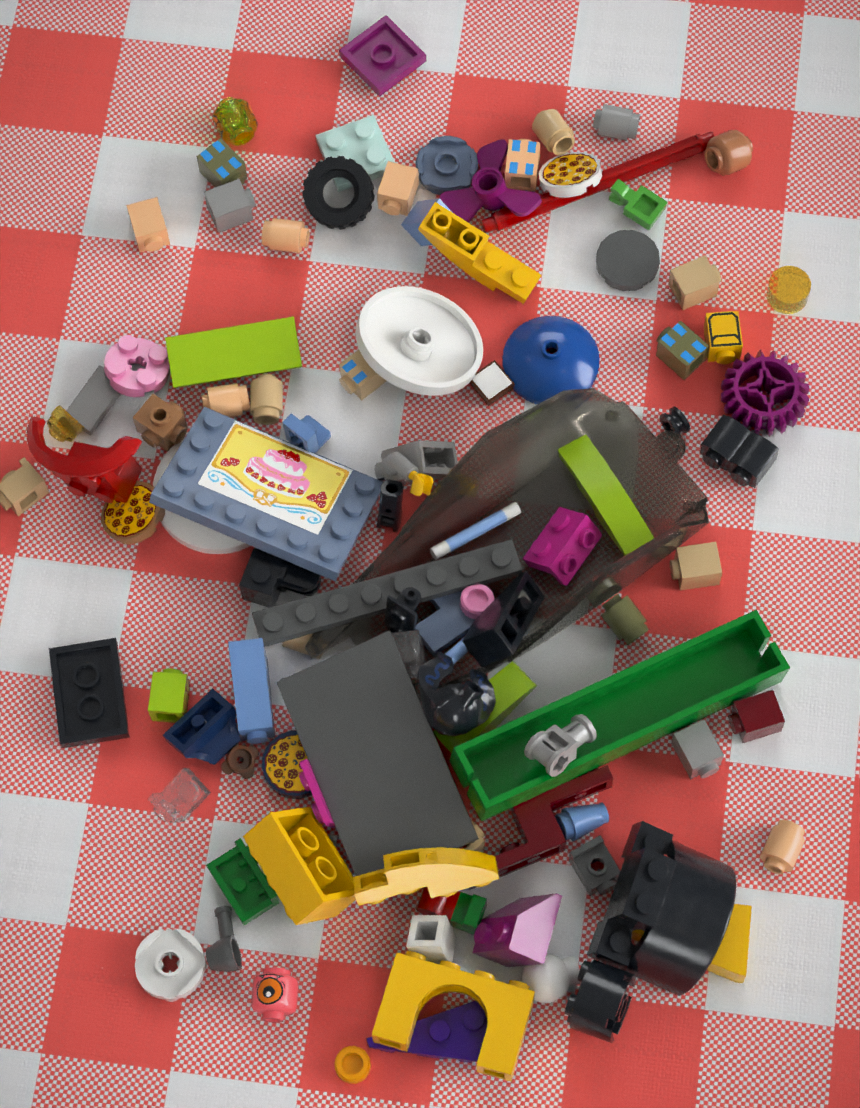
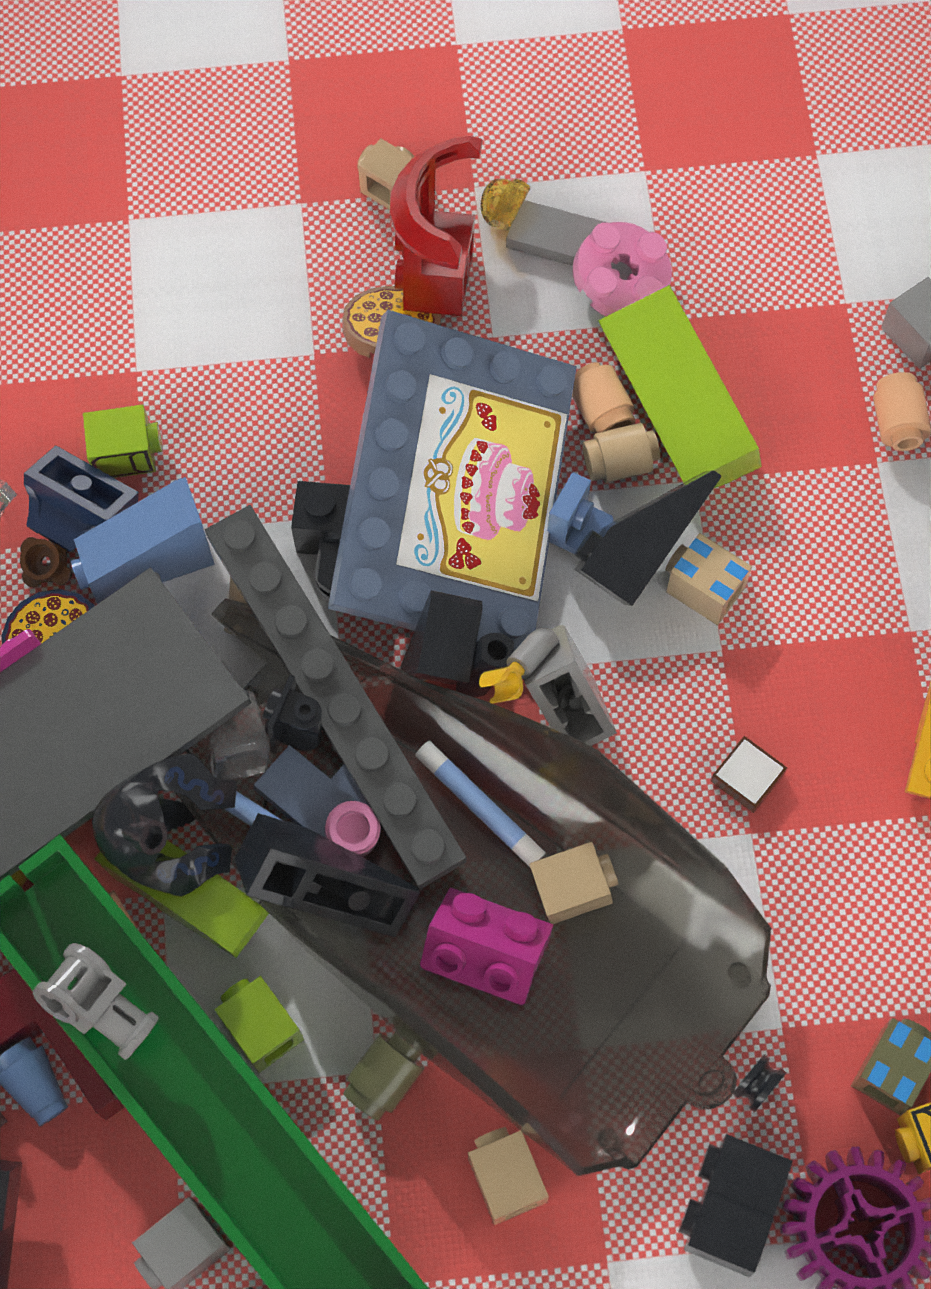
camera: 75 degrees right, 0 degrees up
(88, 693) = (109, 341): black plate -> none
(148, 225) = (854, 226): light nougat brick -> none
(160, 423) = (539, 317): medium nougat brick -> none
(333, 398) = (635, 545): none -> black slope
(373, 521) = (444, 639): none -> black slope
(419, 340) = (775, 639): white dish -> none
(538, 488) = (574, 882): none -> tan brick
(543, 374) = (810, 891): blue dish -> none
(574, 677) = (258, 1022): none -> lime brick
(605, 495) = (583, 995): lime slope -> none

